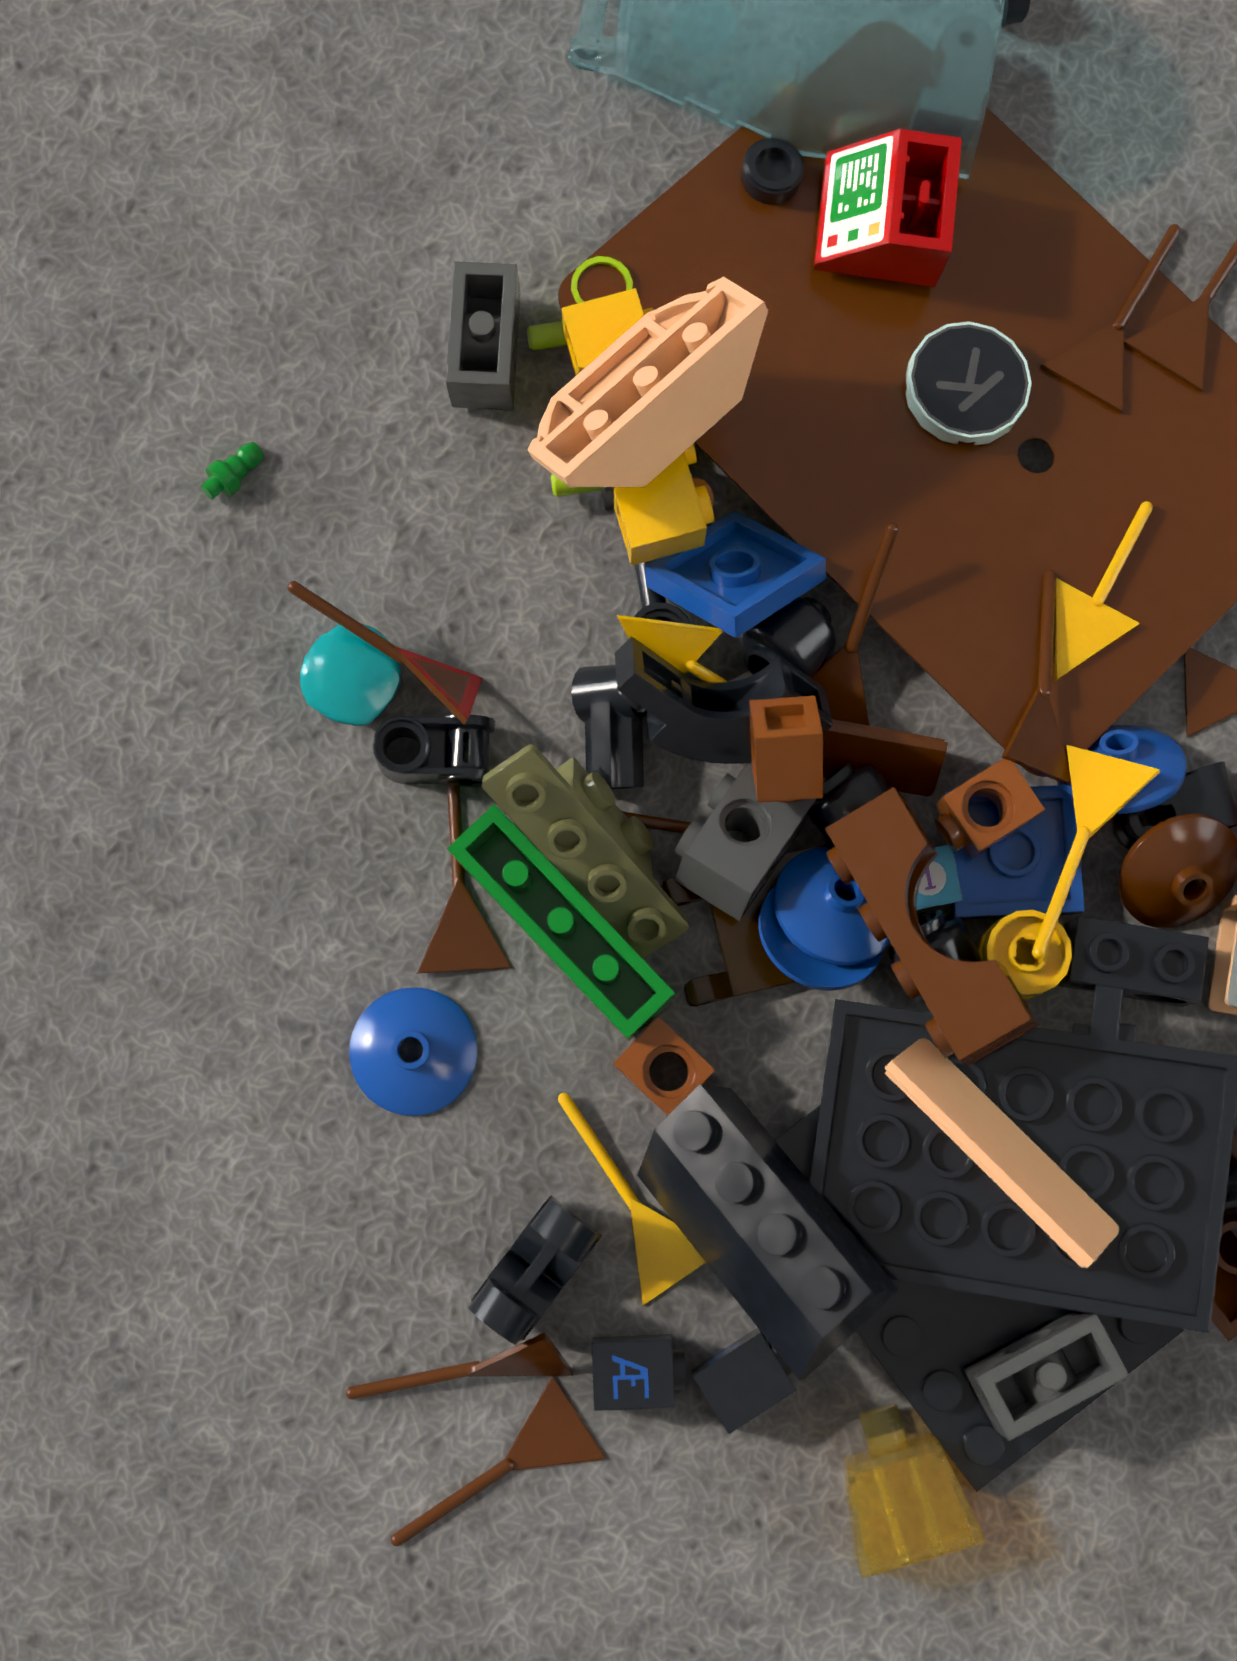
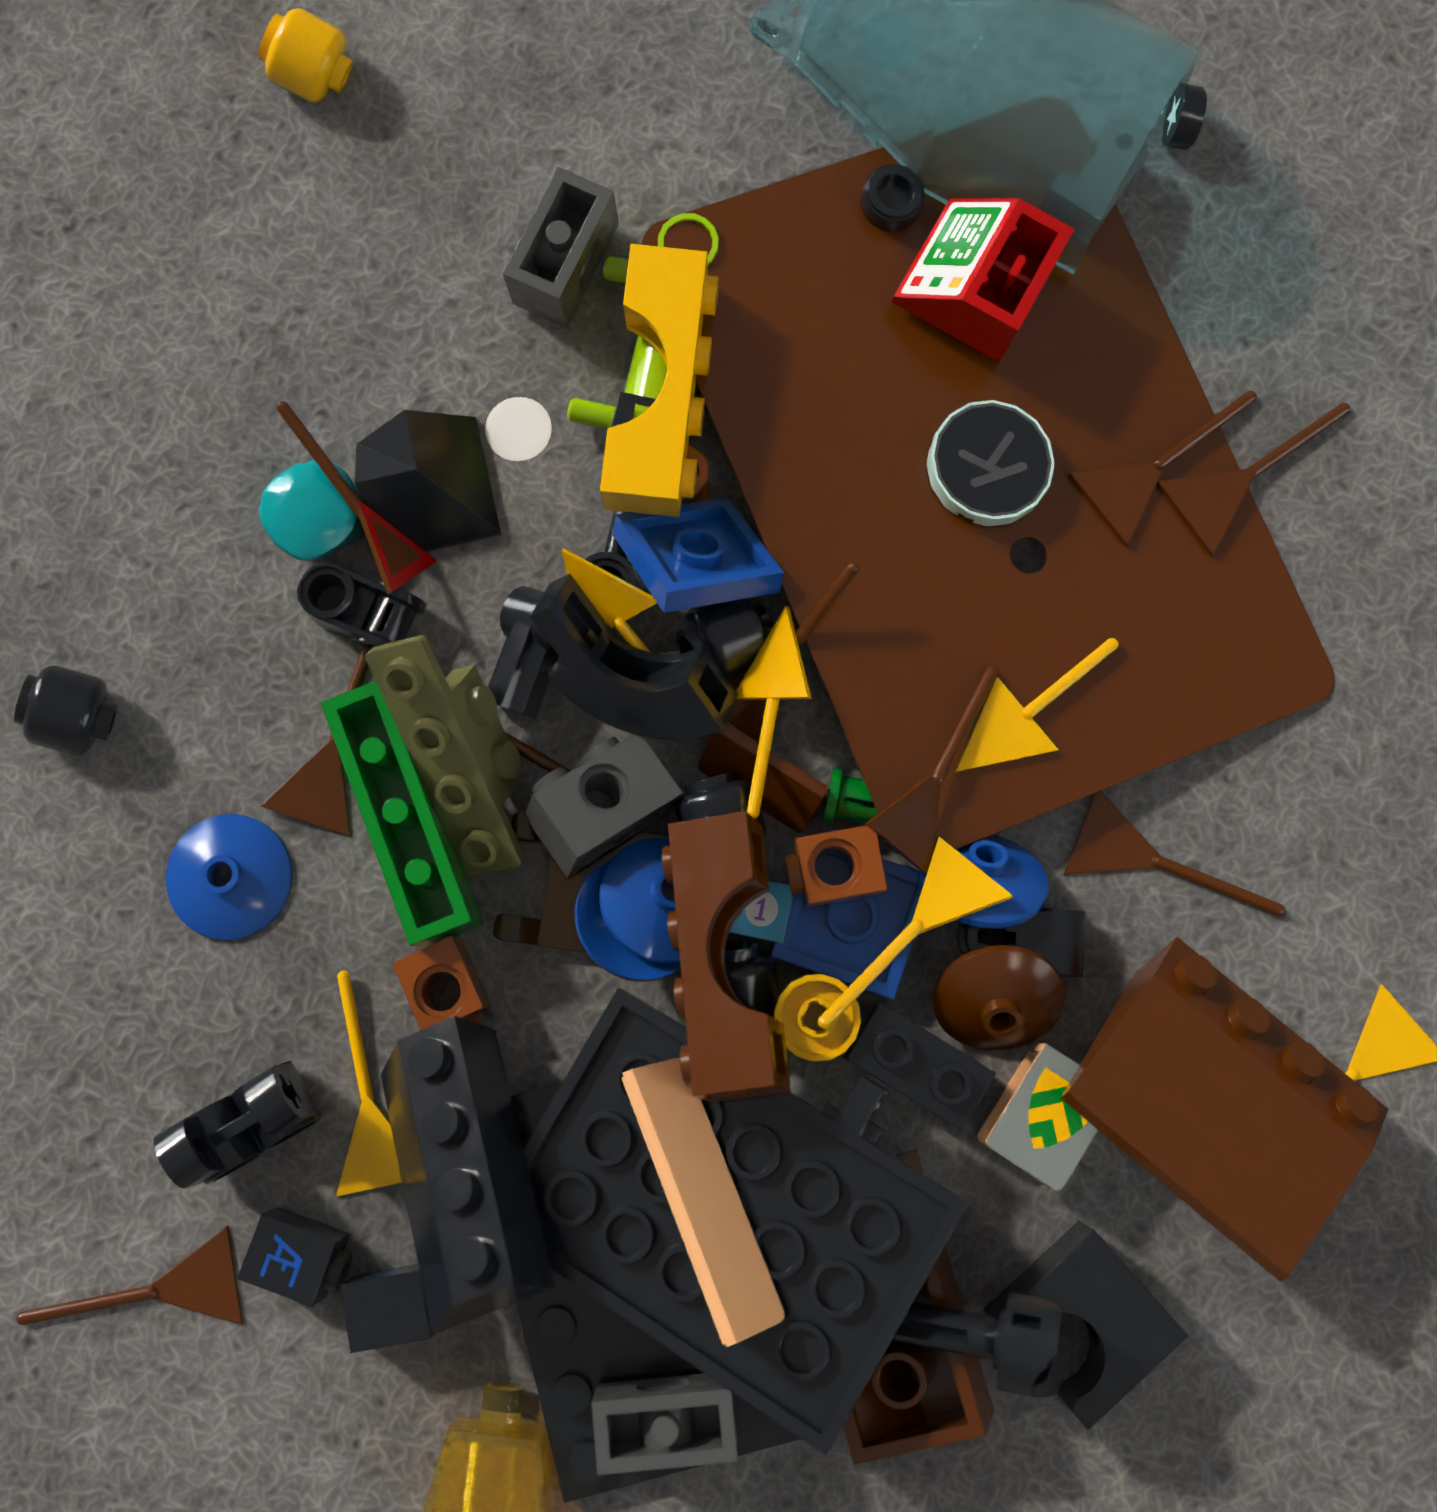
camera: 25 degrees right, 0 degrees up
(155, 246) = (305, 55): none -> yellow head
(195, 956) = (64, 710): none -> black head
(226, 475) = (287, 286): green piece -> none
(445, 603) = (428, 479): none -> black slope
(506, 523) = (518, 429): none -> white sticker
(531, 1358) = (203, 1202): reddish brown piece -> none
(653, 390) = (671, 352): light nougat wedge -> none
(786, 749) = (665, 735): dark orange brick -> none
(853, 657) = (773, 676): none -> yellow piece
(959, 757) = (840, 809): none -> green bush

